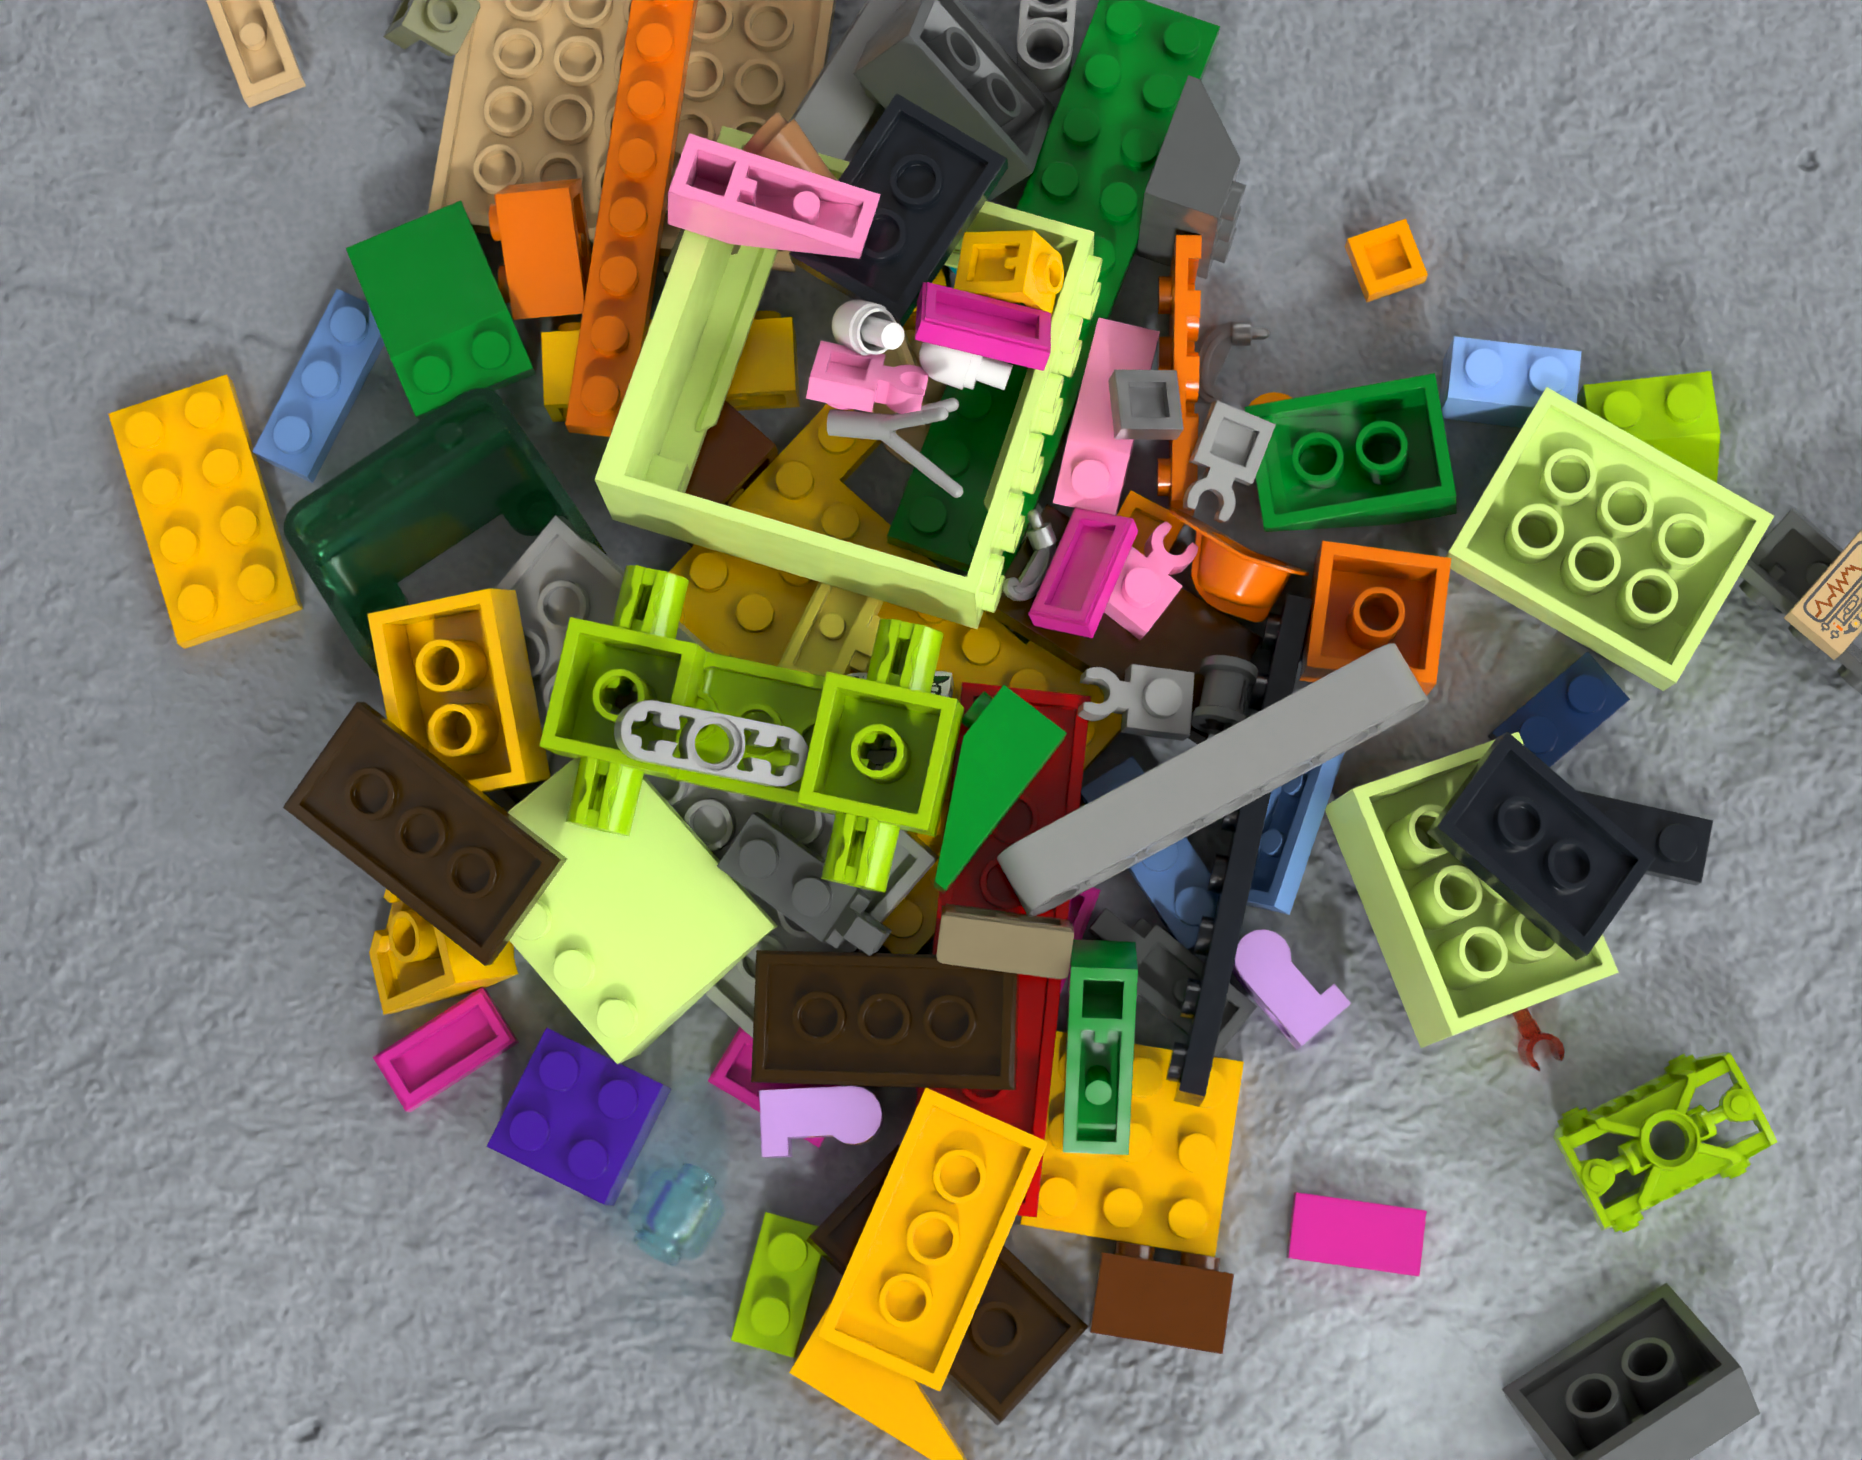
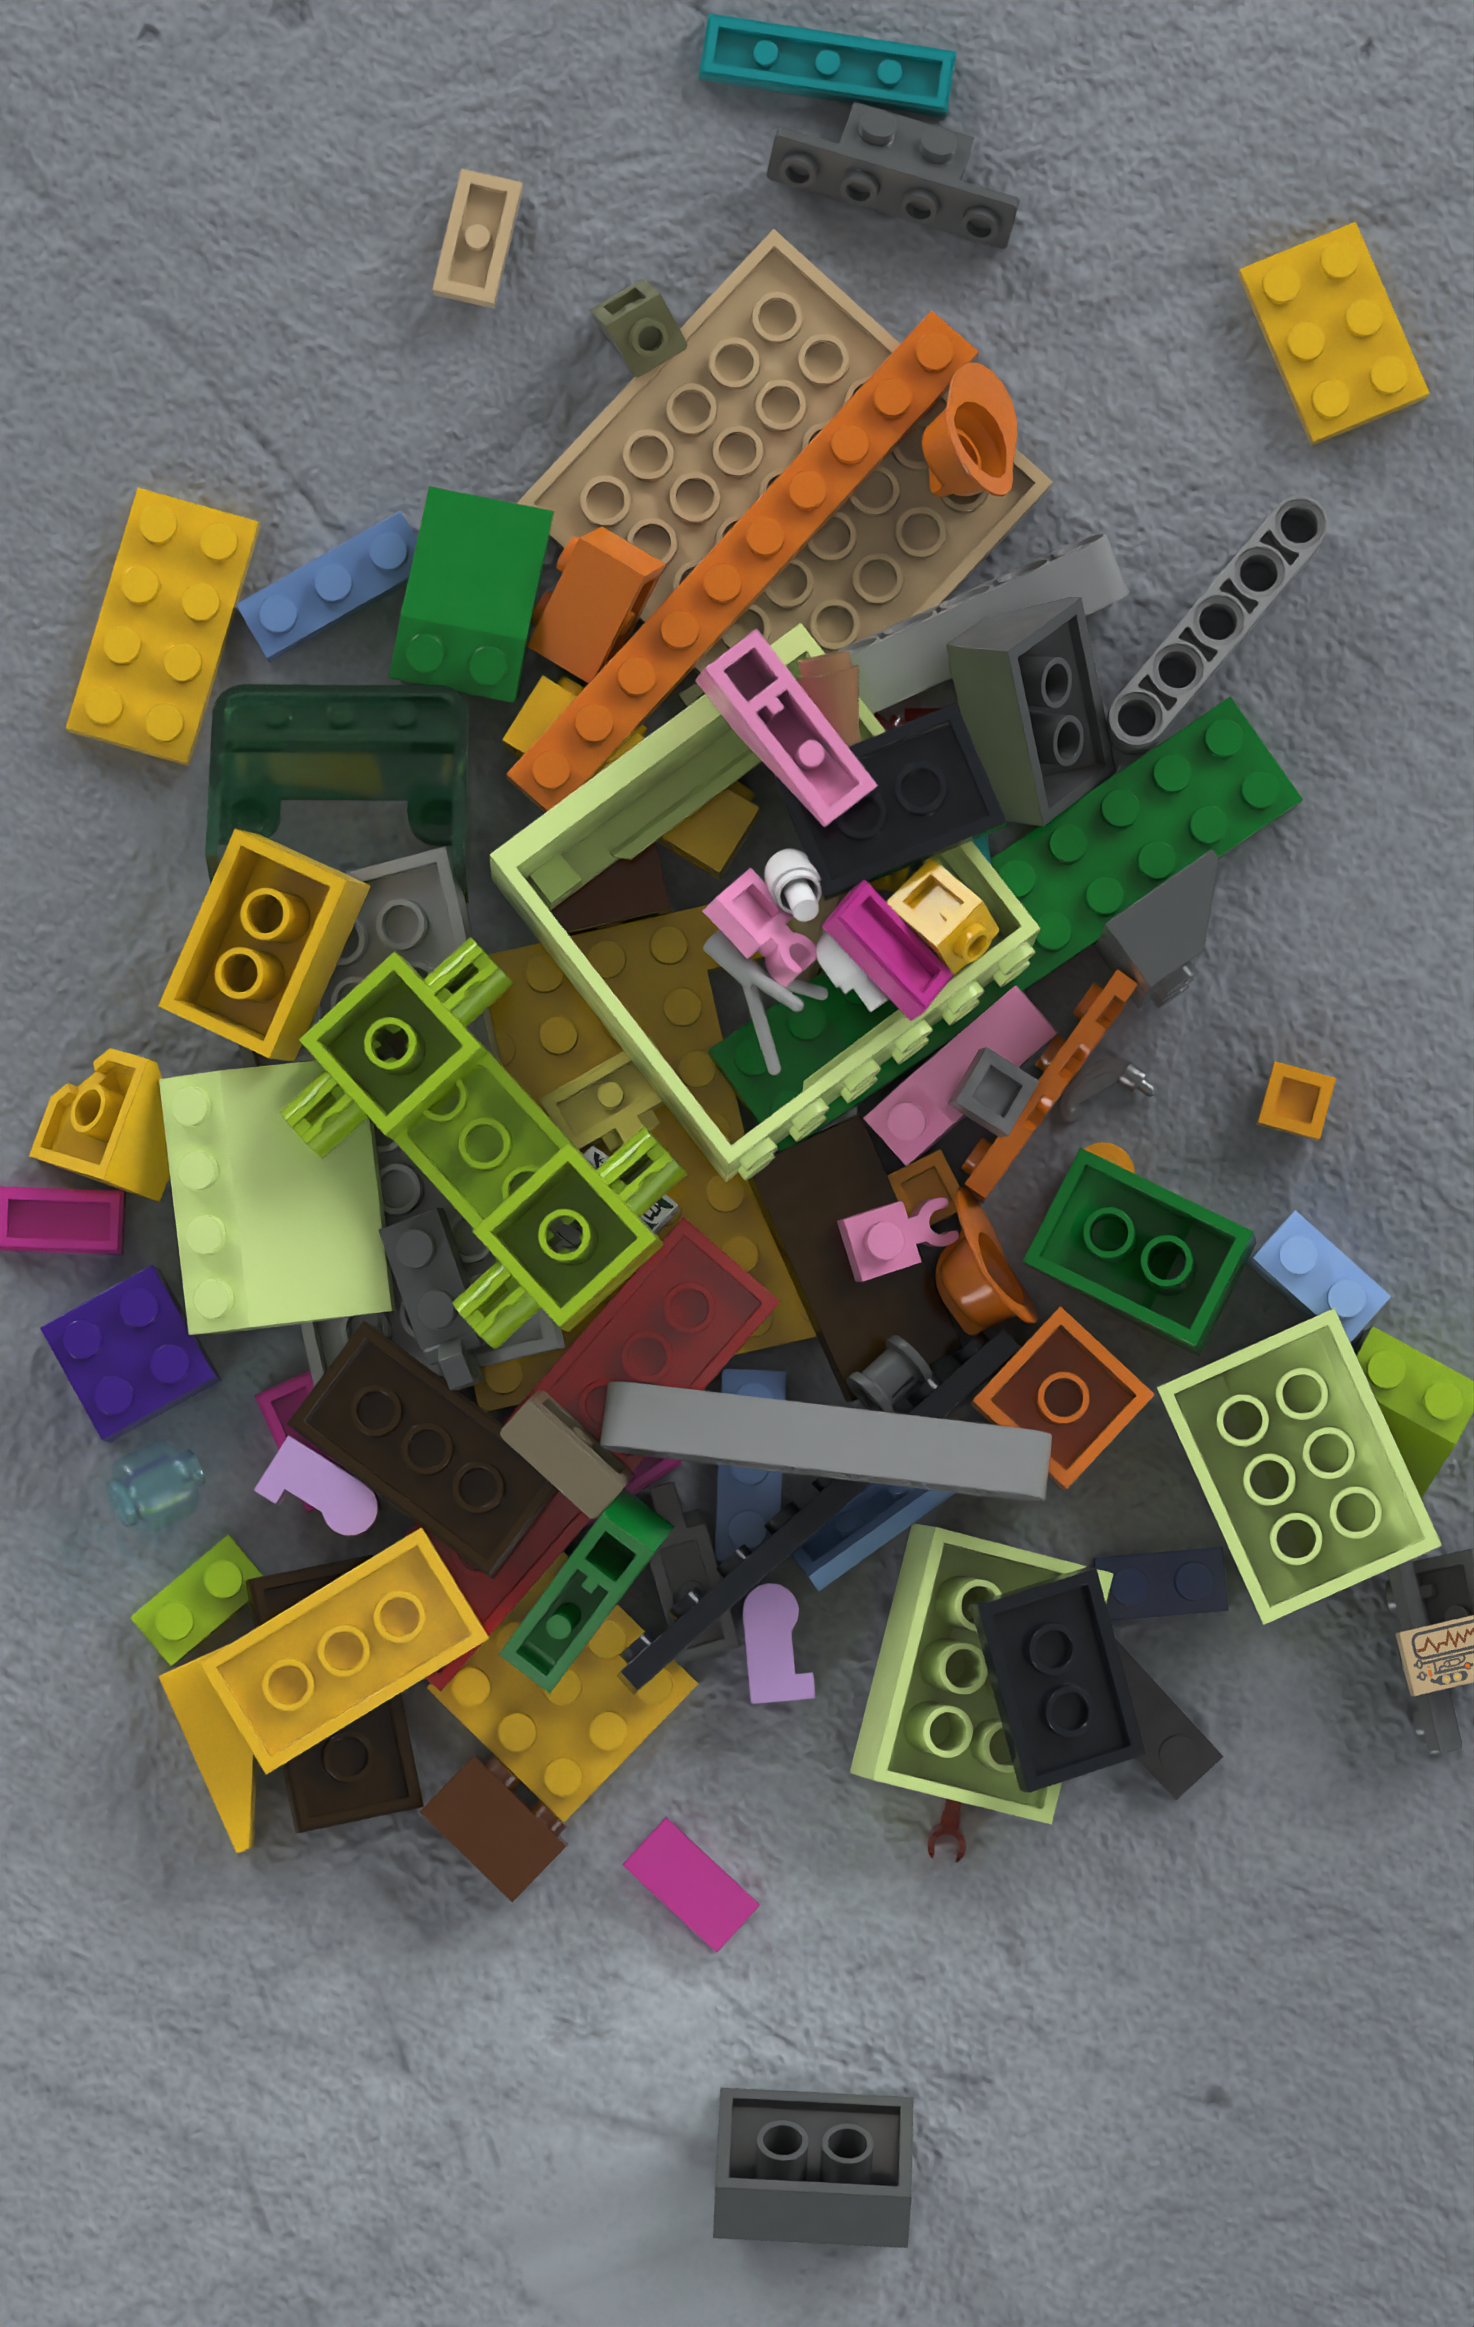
camera: 30 degrees right, 5 degrees up
(424, 833) = (160, 1041): dark brown tile -> none
(667, 717) = (458, 1180): light grey beam -> none
(995, 765) = (656, 1308): green slope -> none
(1044, 543) = (814, 1165): flat silver piece -> none
(1083, 572) = (845, 1195): dark pink tile -> none
(1150, 700) = (824, 1338): light grey plate -> none
(1229, 450) = (1038, 1176): light grey plate -> none
(1636, 1115) = (987, 1945): lime piece -> none

